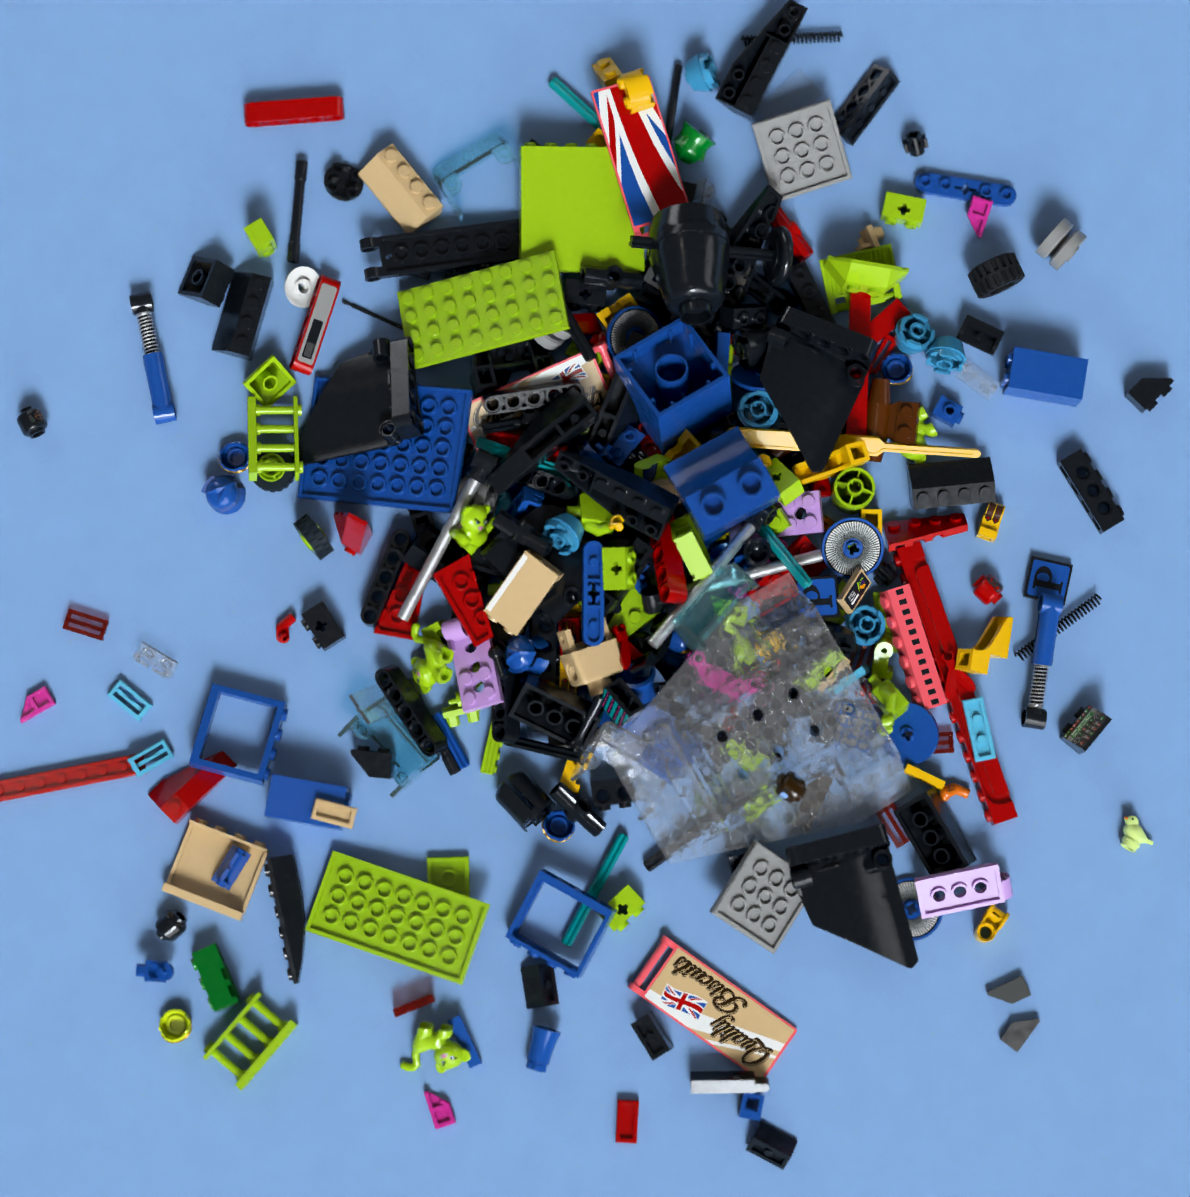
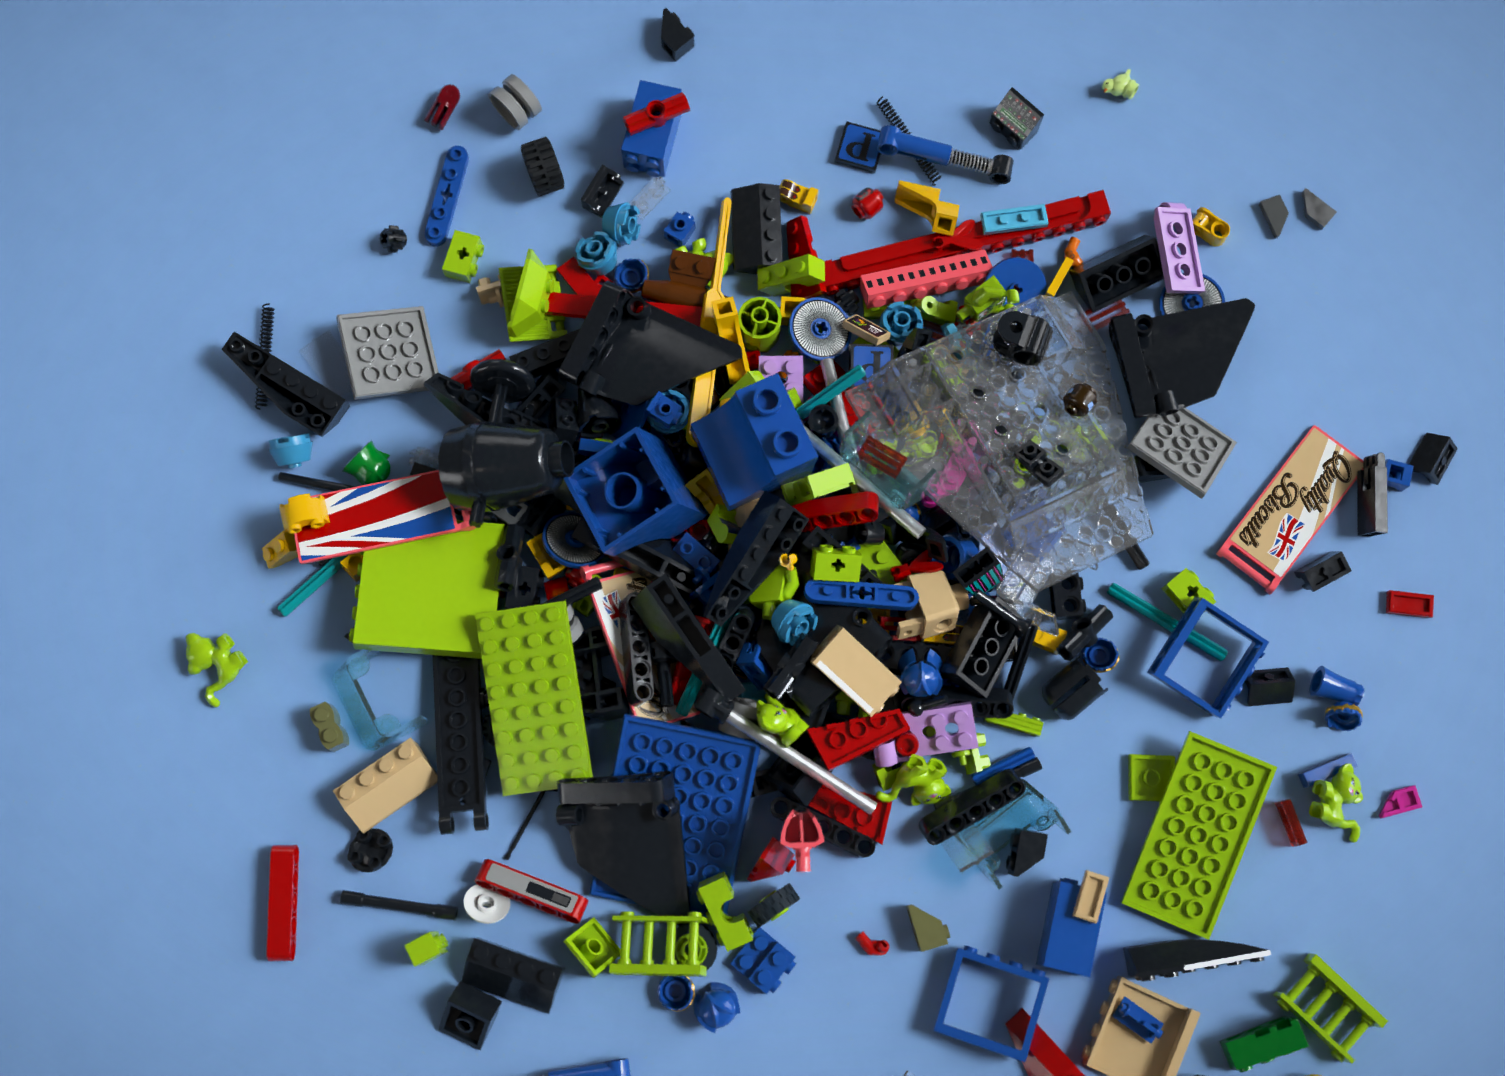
camera: 85 degrees left, 5 degrees down
(265, 533) = (764, 961): none -> blue plate
(290, 501) = (732, 930): none -> lime arch
(301, 676) = (927, 929): none -> olive slope
(317, 615) = (859, 902): black brick -> none
(373, 549) = (801, 833): none -> coral piece
(445, 136) = (327, 720): none -> olive brick
(462, 647) = (907, 744): none -> red tile
(508, 18) = (203, 654): none -> lime animal
(515, 1053) = (1343, 716): none -> blue hair
(724, 748) = (1038, 464): none -> black slope
(730, 589) = (885, 449): none -> clear red tile
(754, 395) = (667, 419): none -> blue brick
(847, 740) = (1026, 340): none -> black piece
(867, 104) = (343, 280): black fence -> none
(904, 517) = (800, 270): none -> lime arch
(978, 214) = (474, 183): dark pink tile -> none
(1057, 389) = (668, 108): none -> red piece
(1061, 179) = (446, 102): none -> dark red arm
(1090, 503) = (767, 107): black brick -> none

